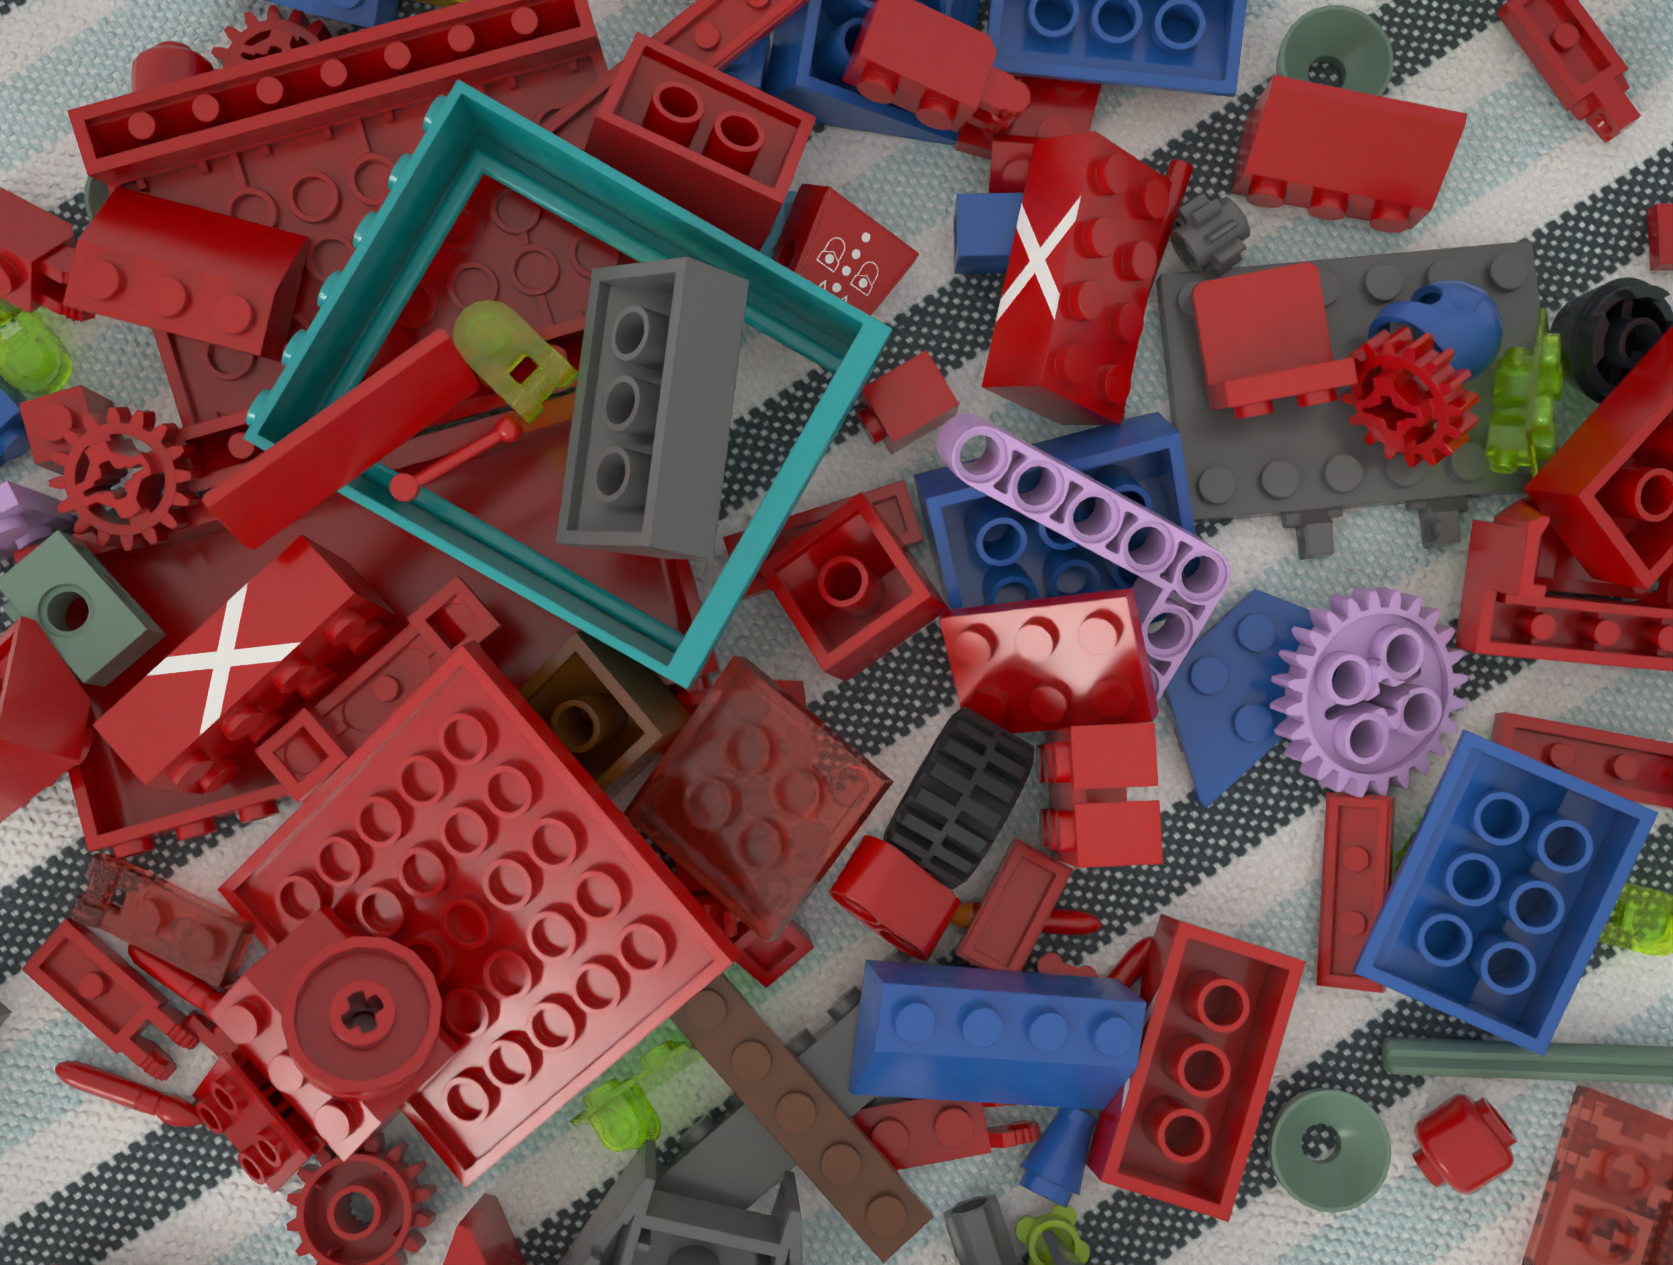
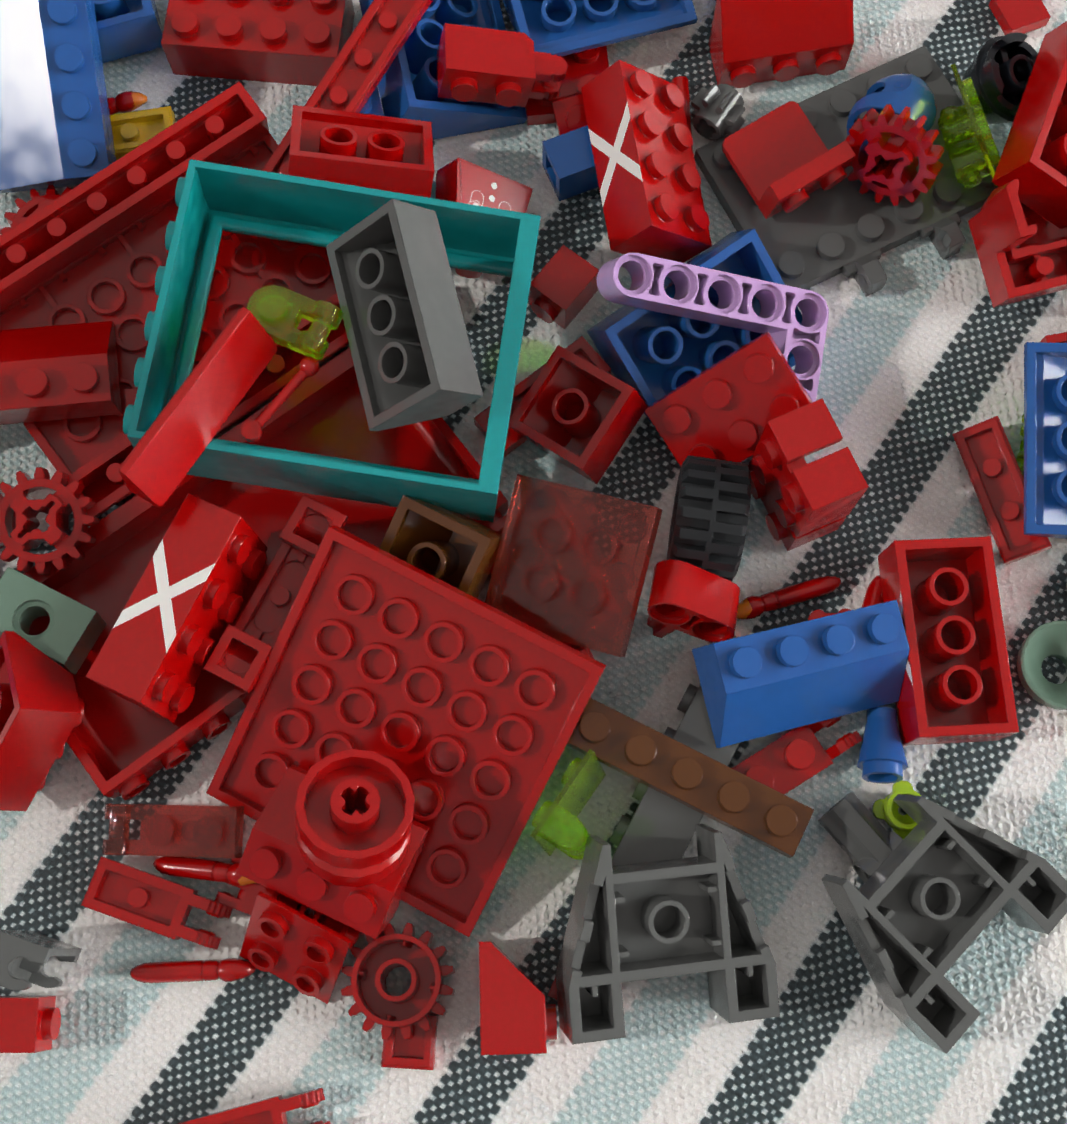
camera: 20 degrees left, 10 degrees down
(772, 959) = (620, 680): red plate -> none
(1013, 909) = (776, 585): red tile -> none
(1227, 690) = (873, 382): blue wing -> none
(1390, 700) = (928, 331): lavender gear -> none

